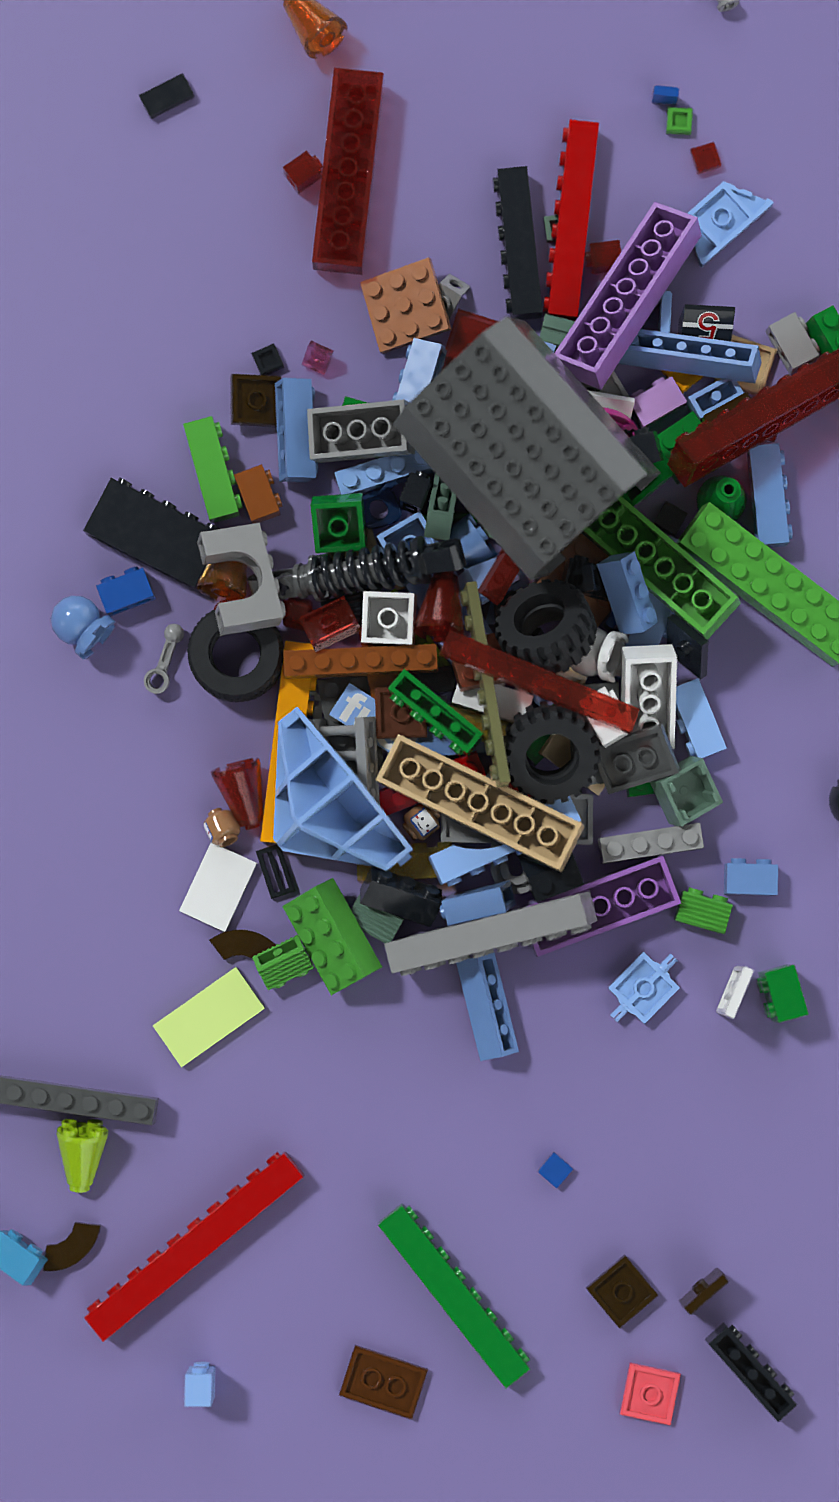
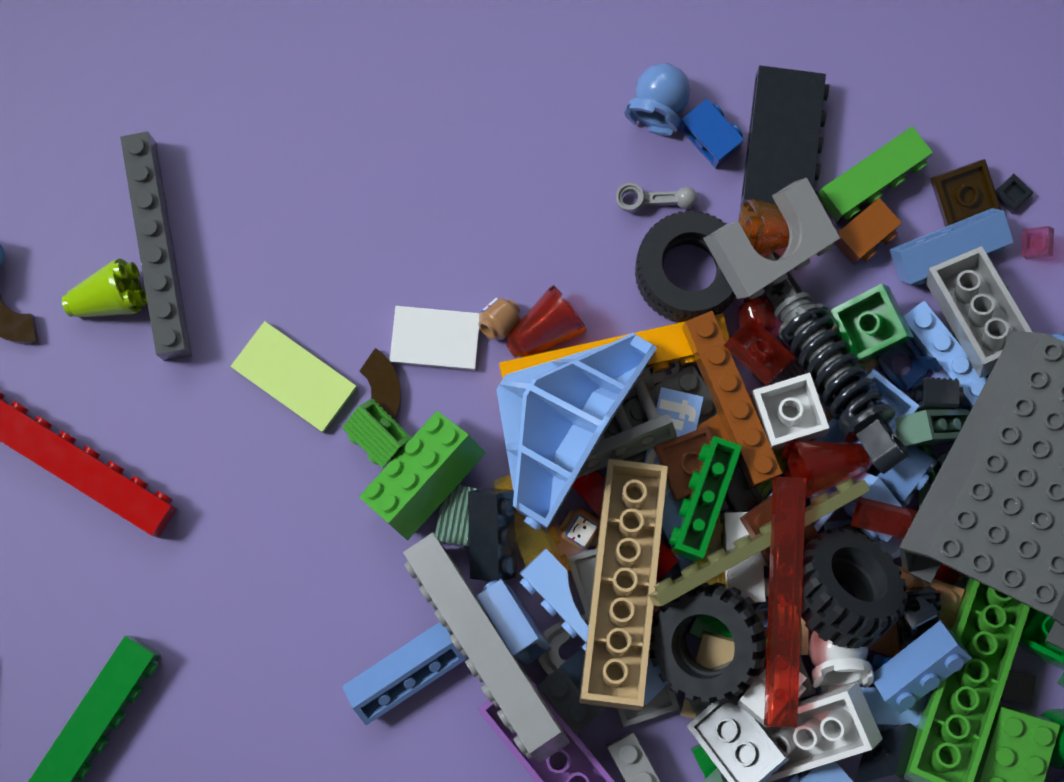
camera: 70 degrees right, 5 degrees down
(282, 891) = (454, 407): black tile -> none

